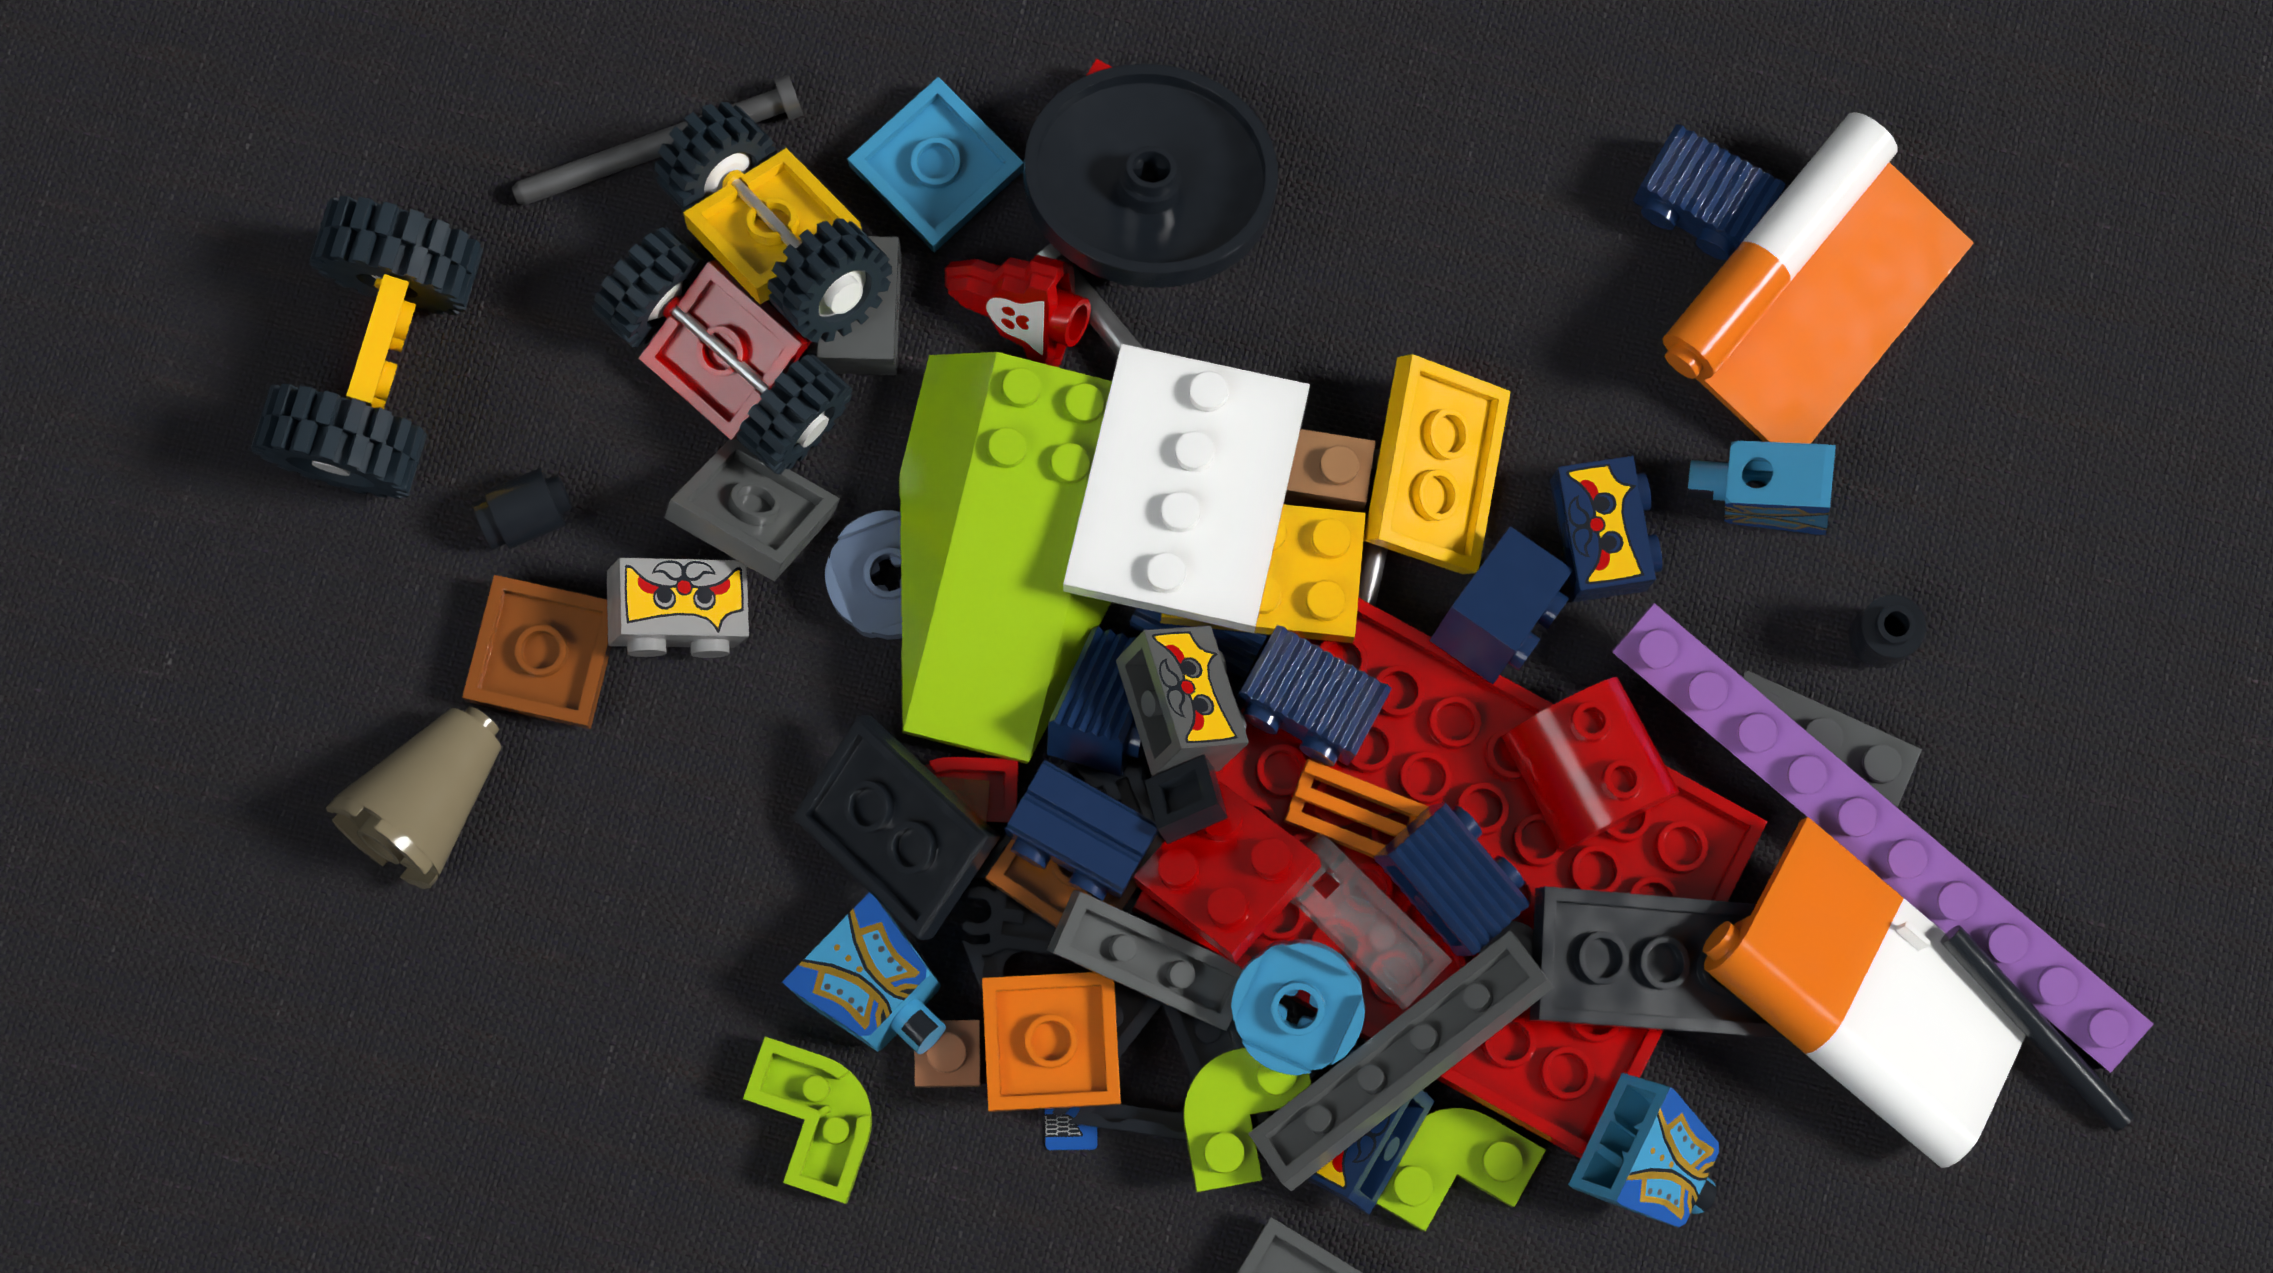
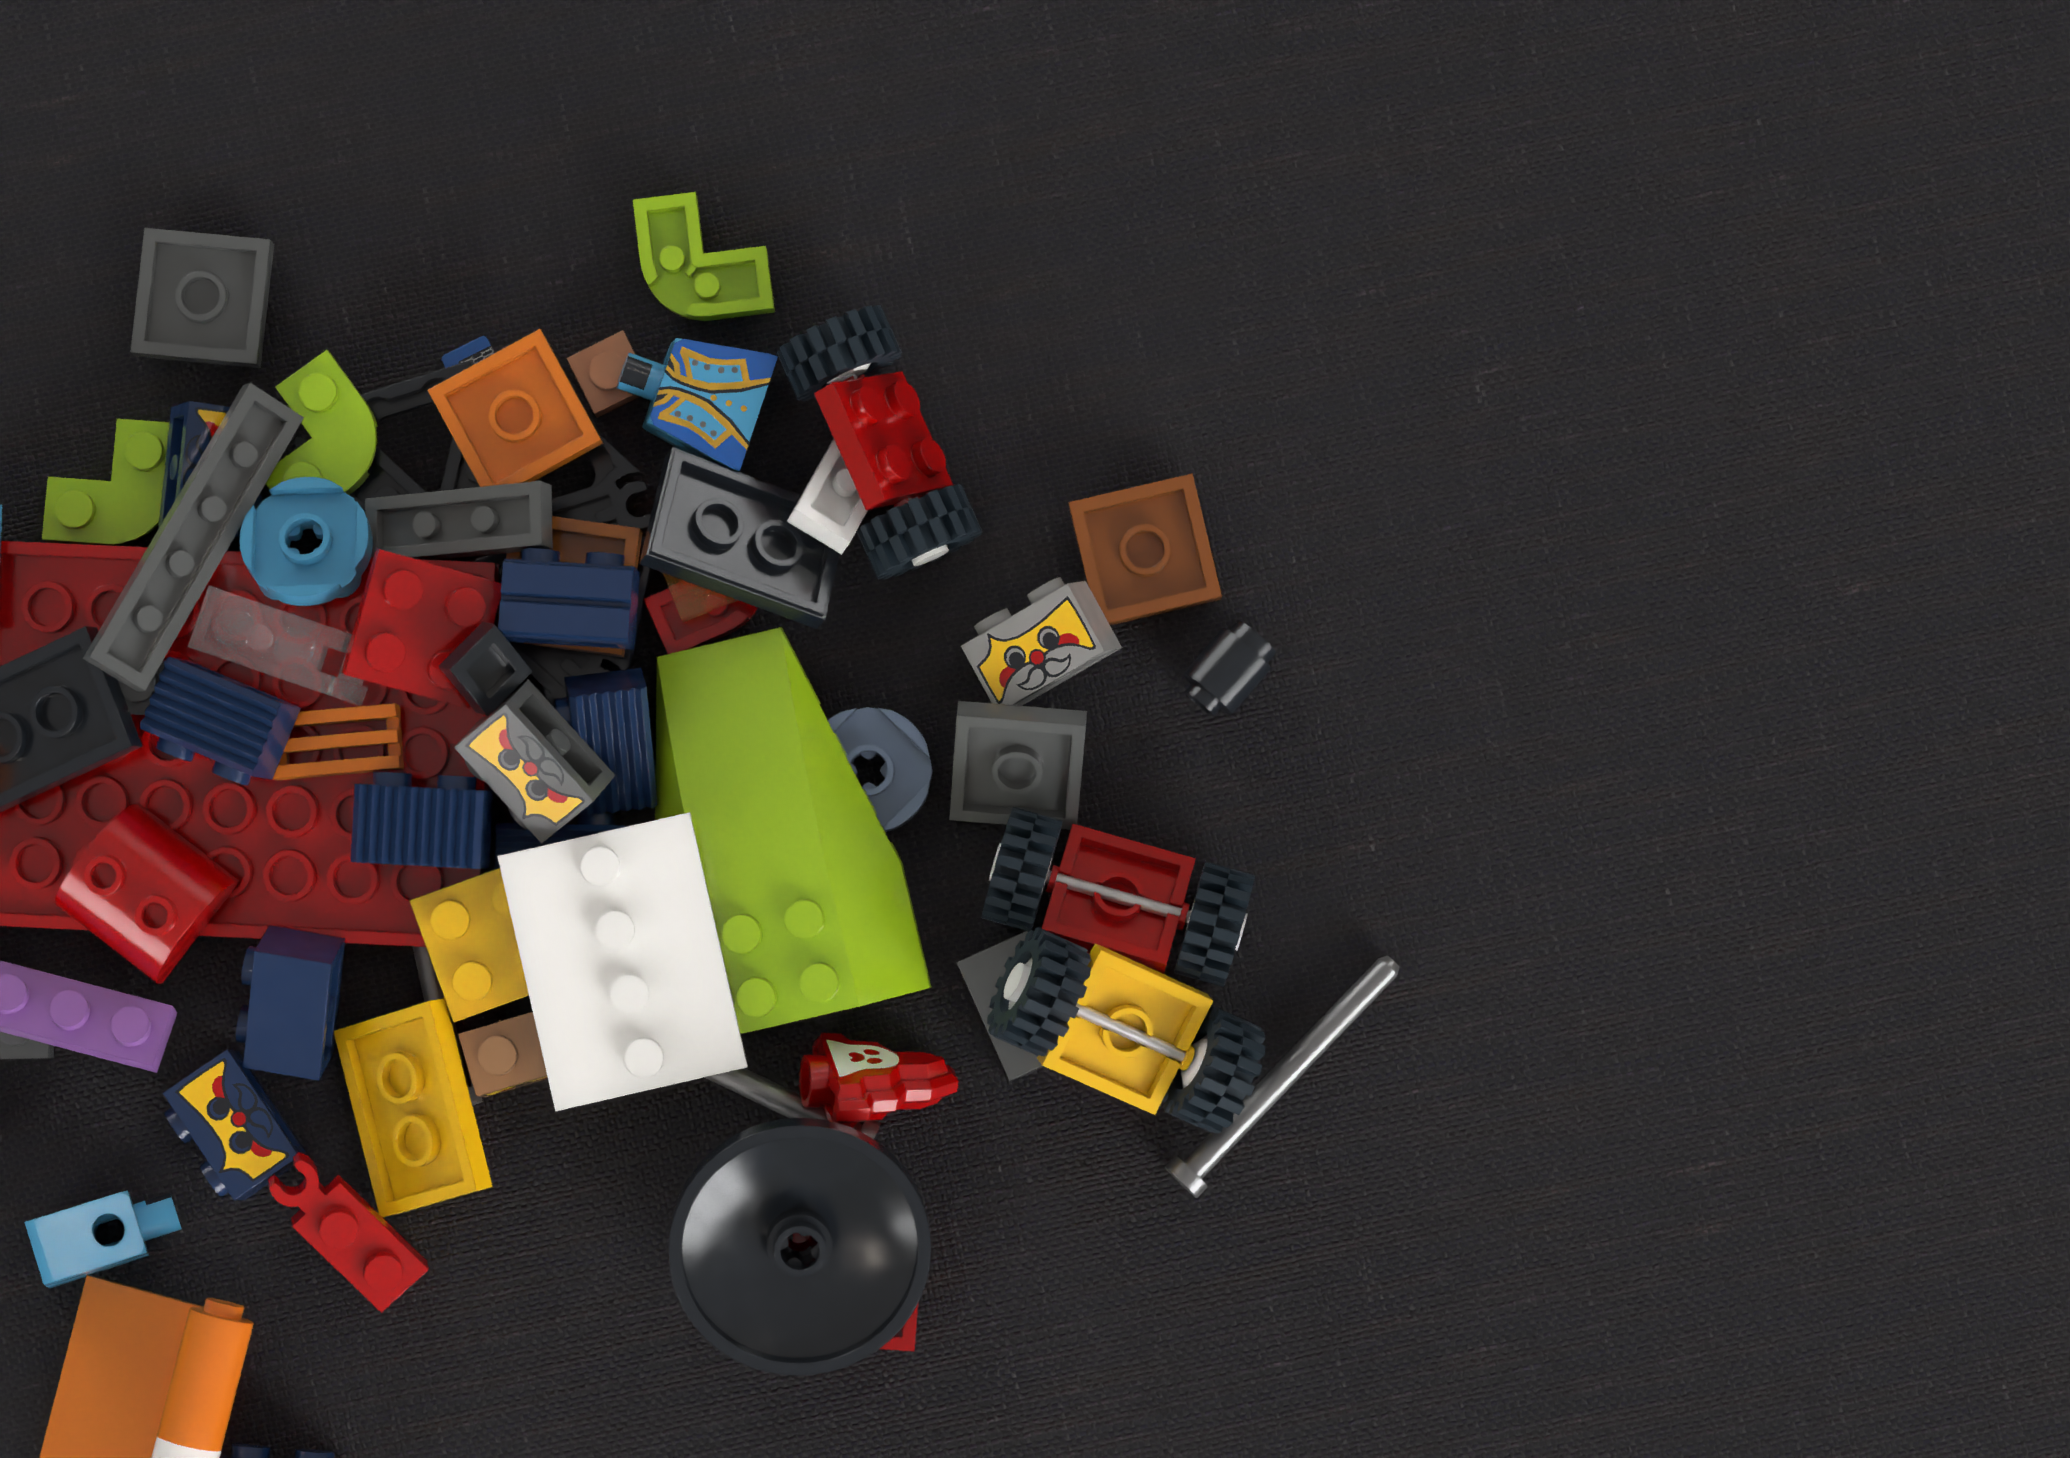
camera: 160 degrees right, 5 degrees up
(408, 268) = (1409, 649): black plate -> none
(420, 795) = (1180, 371): dark tan cone -> none
(726, 857) = (881, 440): none -> plate
(782, 836) = (830, 503): none -> white plate
(936, 164) = (1016, 1177): dark azure plate -> none
(1543, 384) = (350, 1235): none -> red plate

